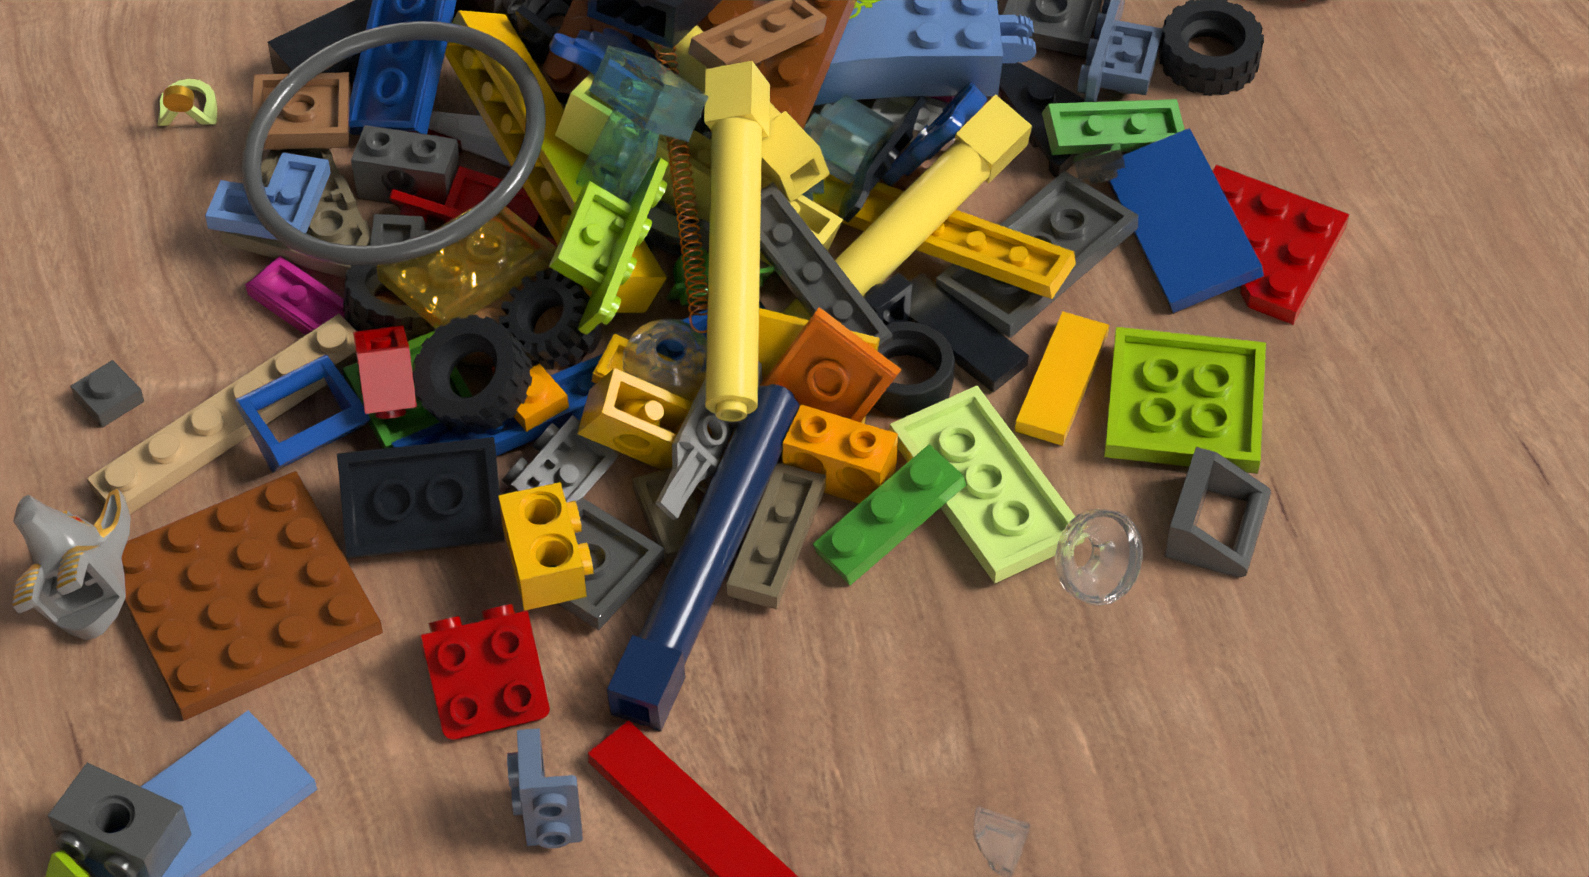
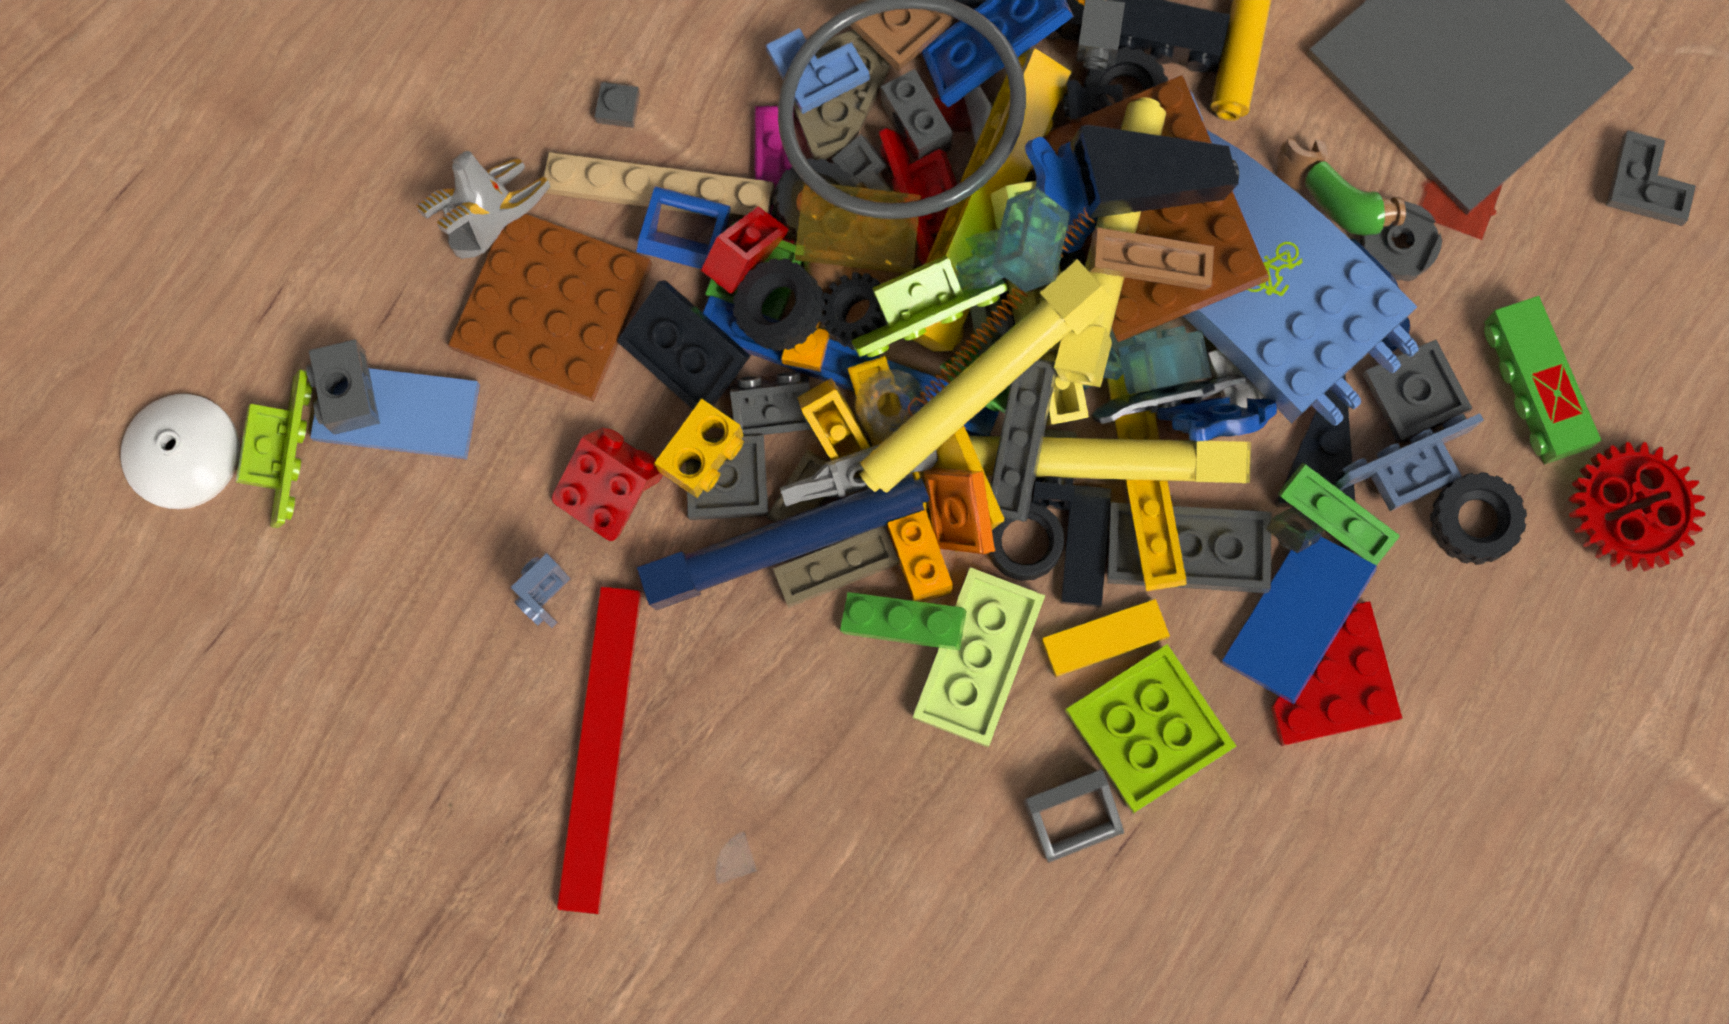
camera: 55 degrees right, 25 degrees up
(1113, 560) = (971, 778): clear piece -> none

